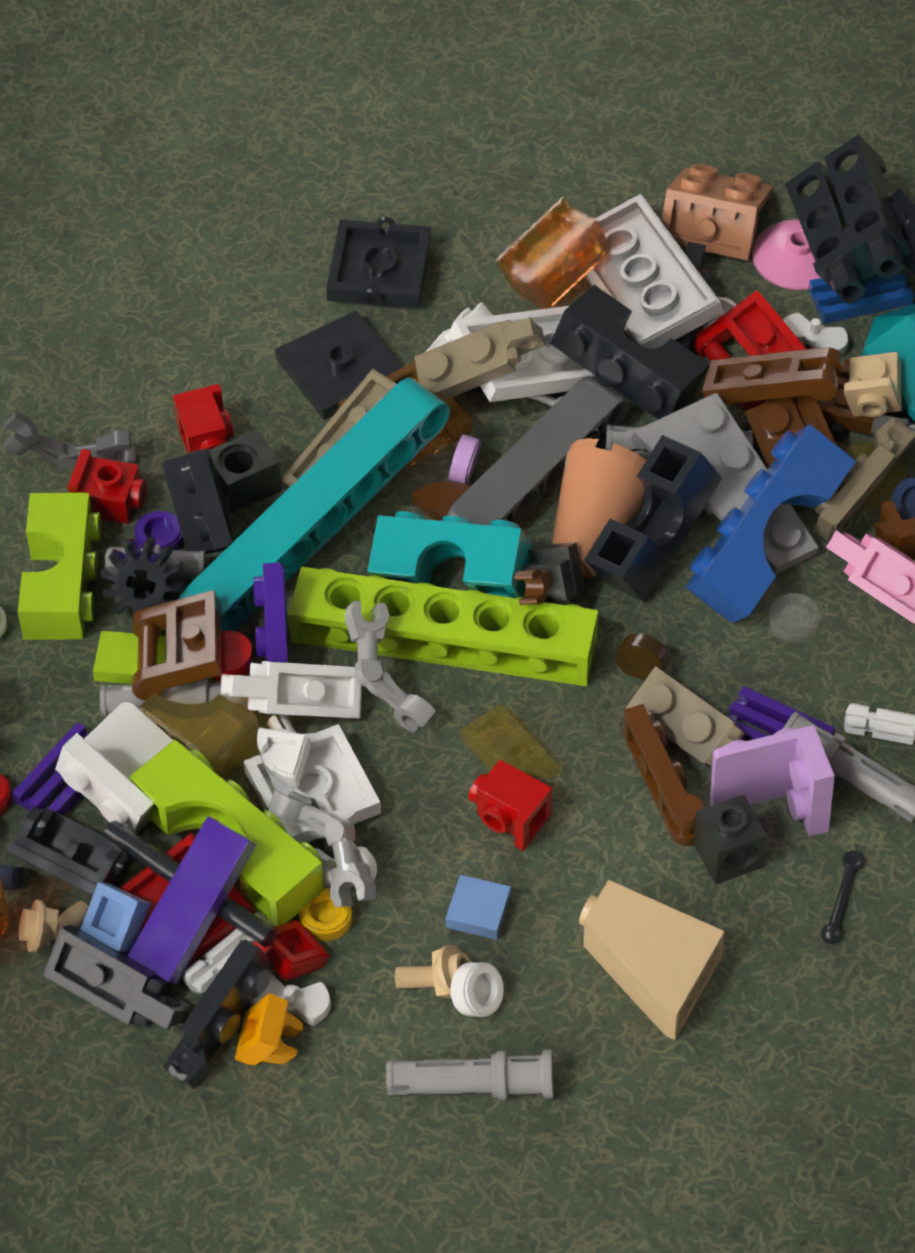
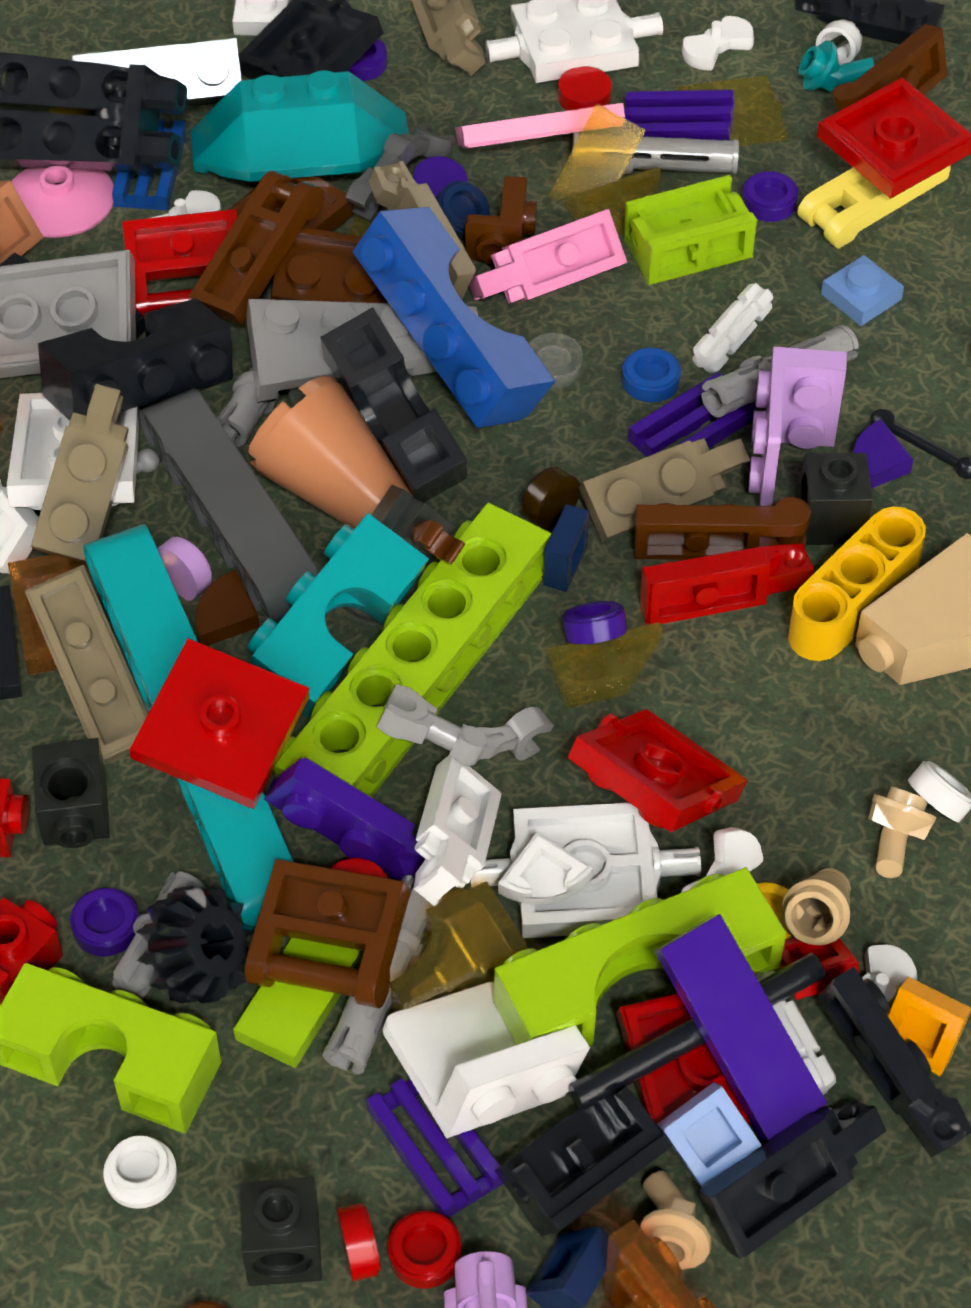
camera: 70 degrees left, 0 degrees up
(198, 501) = (112, 838): black bracket -> none
(303, 514) = (220, 723): none -> red plate
(331, 932) = (818, 905): none -> tan cone
(340, 836) = (642, 877): light grey piece -> none
(407, 797) = (656, 769): none -> red plate
(478, 907) = (817, 761): medium blue tile -> none
(512, 802) = (700, 676): red brick -> none
(535, 723) = (594, 622): none -> dark purple tile
(595, 681) = (566, 548): none -> dark blue tile
(613, 793) = (721, 582): none -> red hinge
(638, 861) = (857, 574): none -> yellow beam
(805, 865) = (885, 454): none -> dark purple tile
(814, 687) = (651, 375): none -> blue tile
(874, 385) = (318, 167): tan bracket -> none

